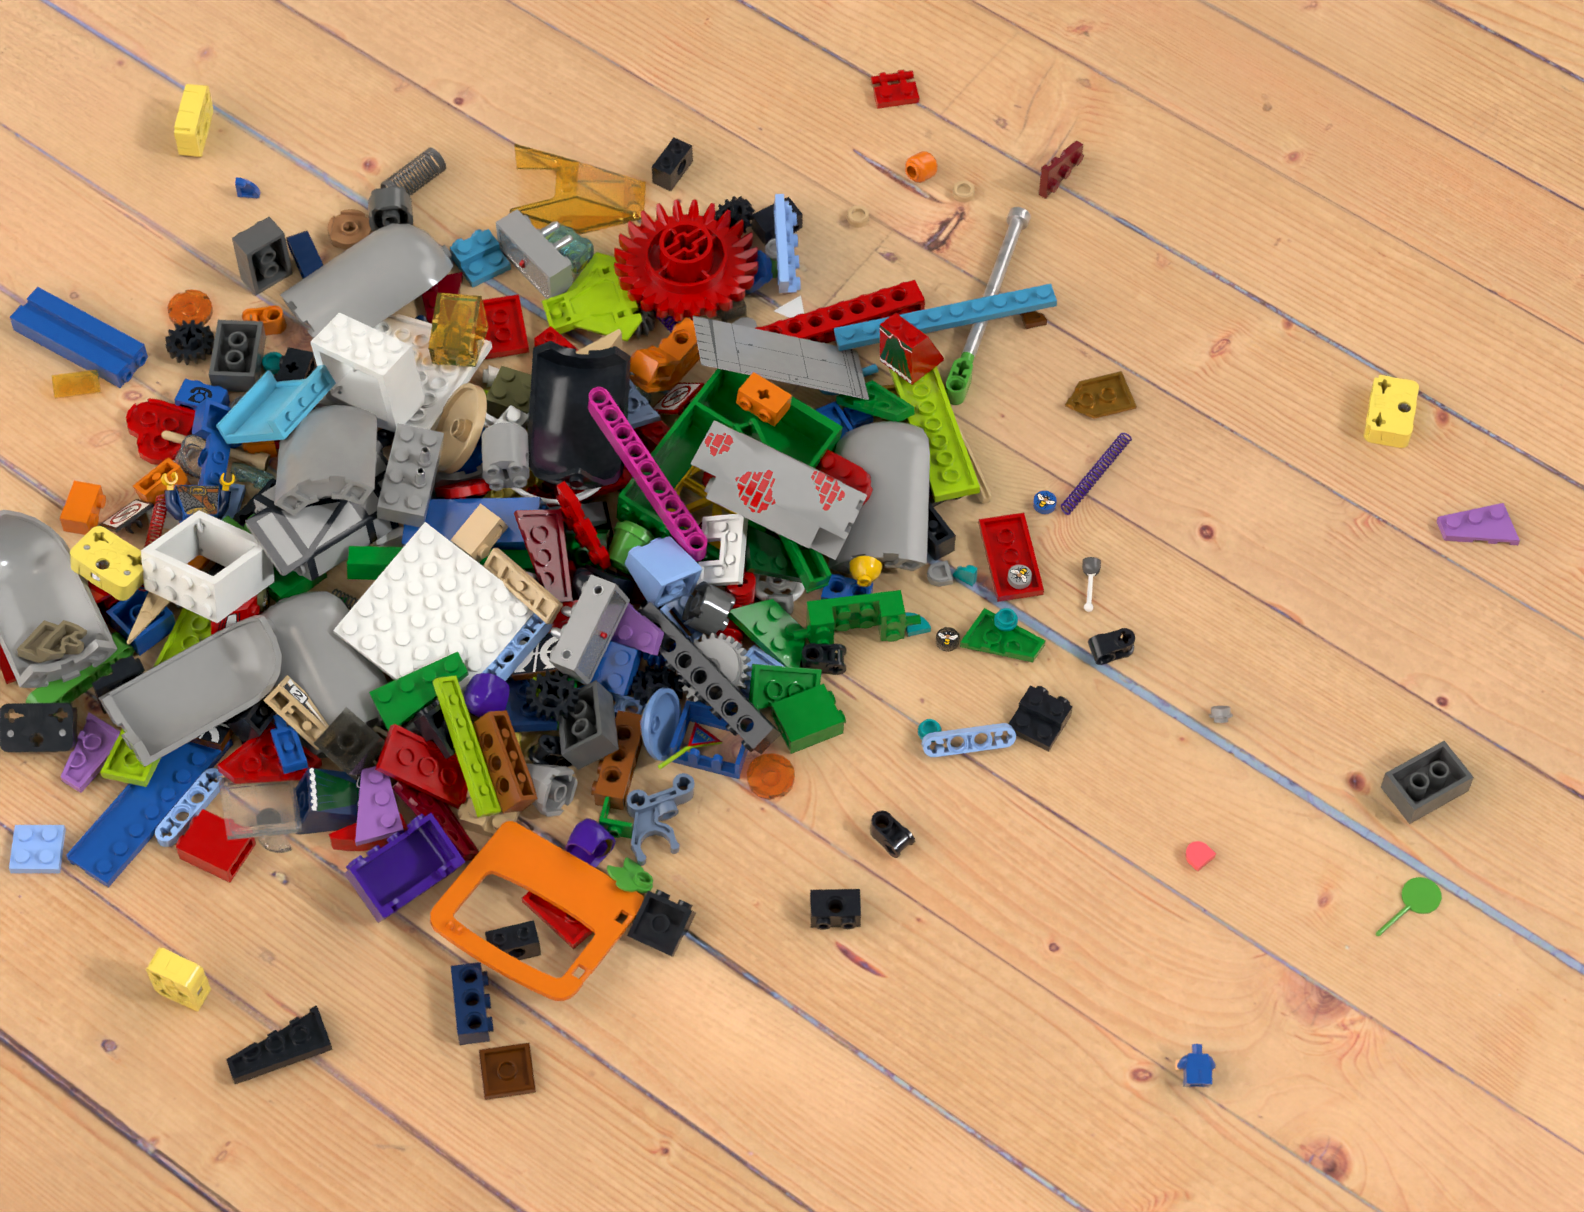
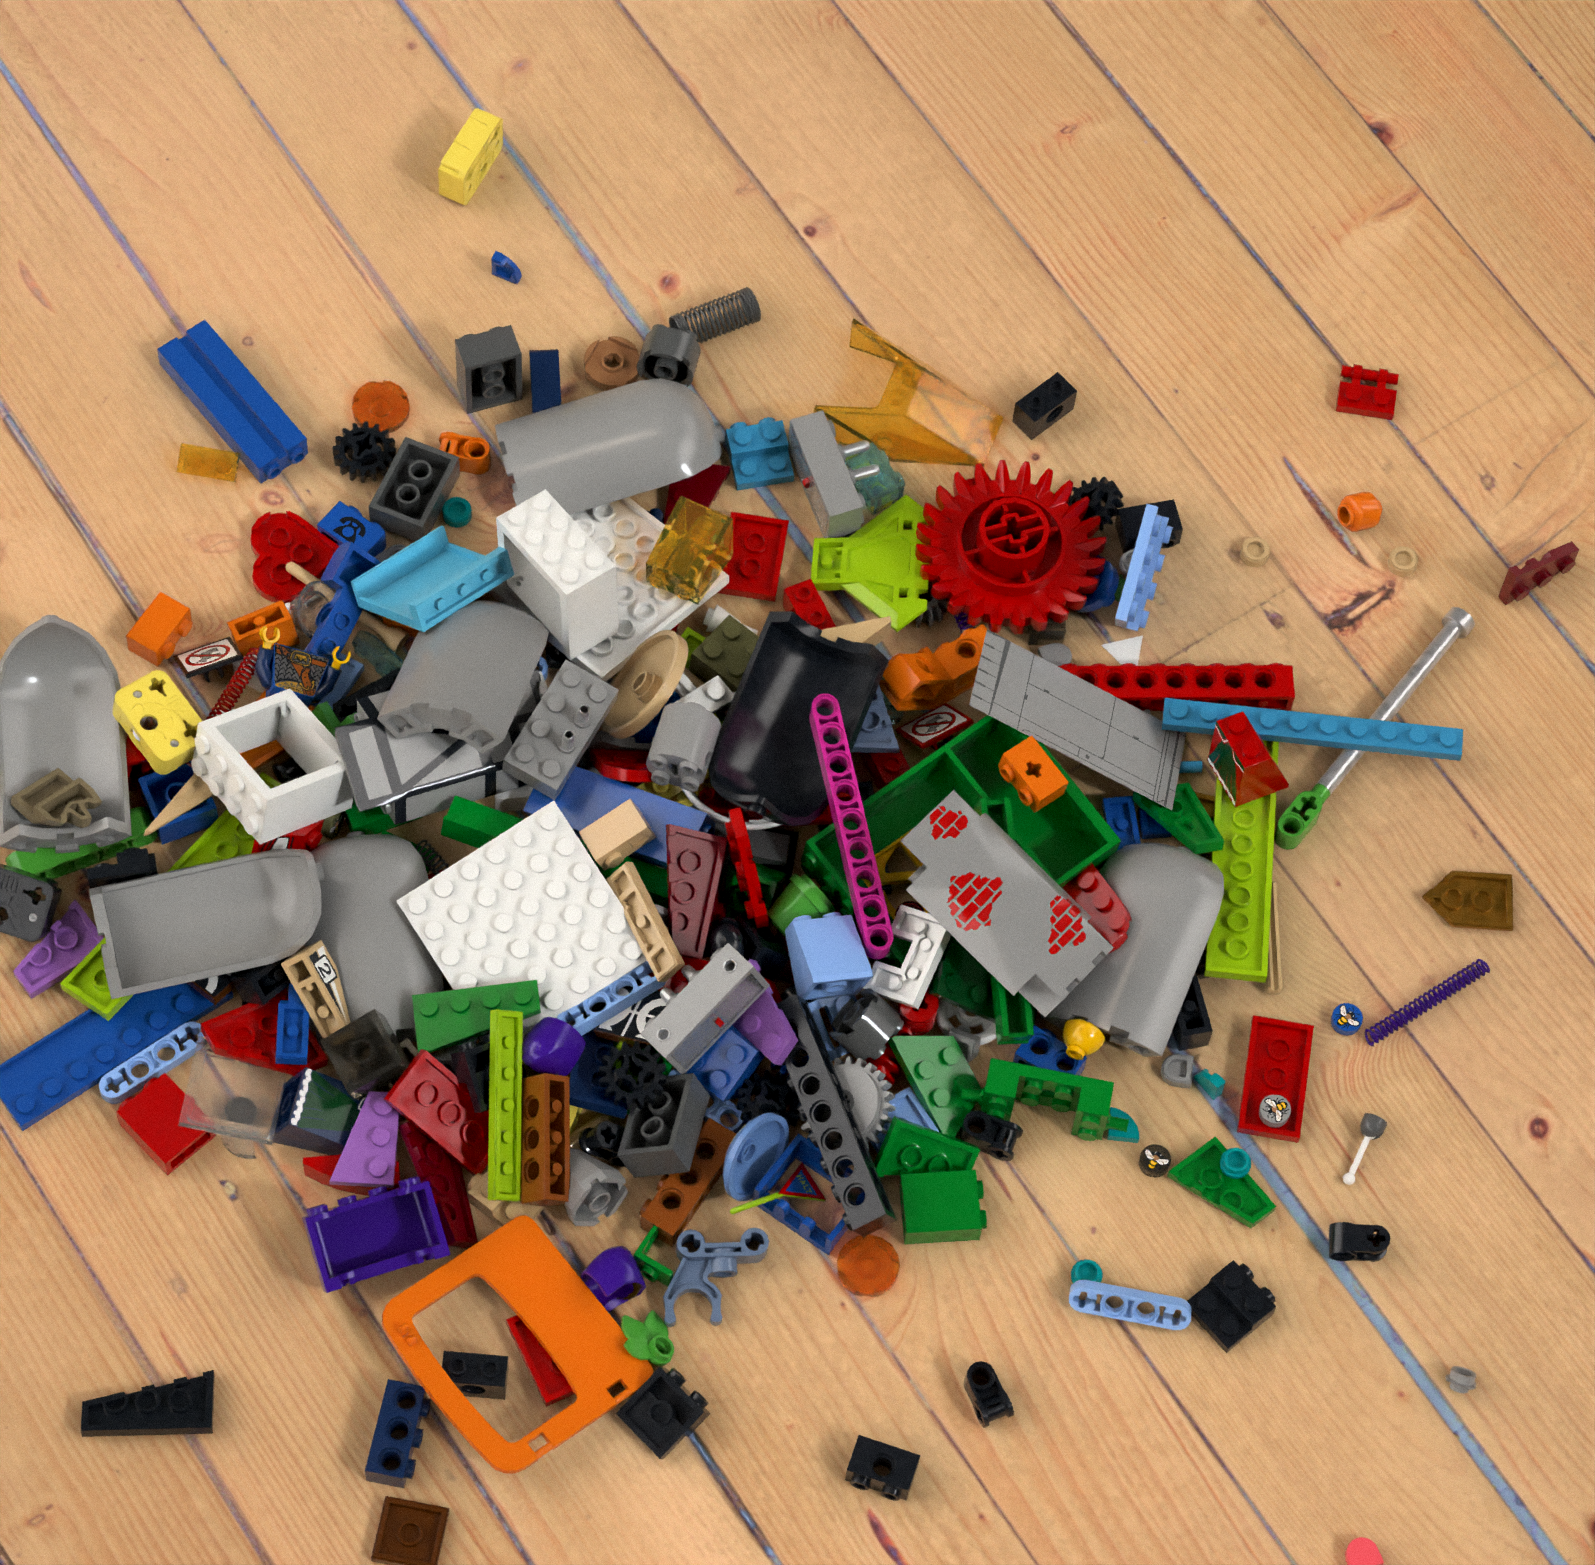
camera: 15 degrees right, 5 degrees up
(178, 979) = (58, 1284): light yellow axle -> none
(295, 365) = (477, 529): black brick -> none
(1033, 319) = (1426, 767): reddish brown tile -> none

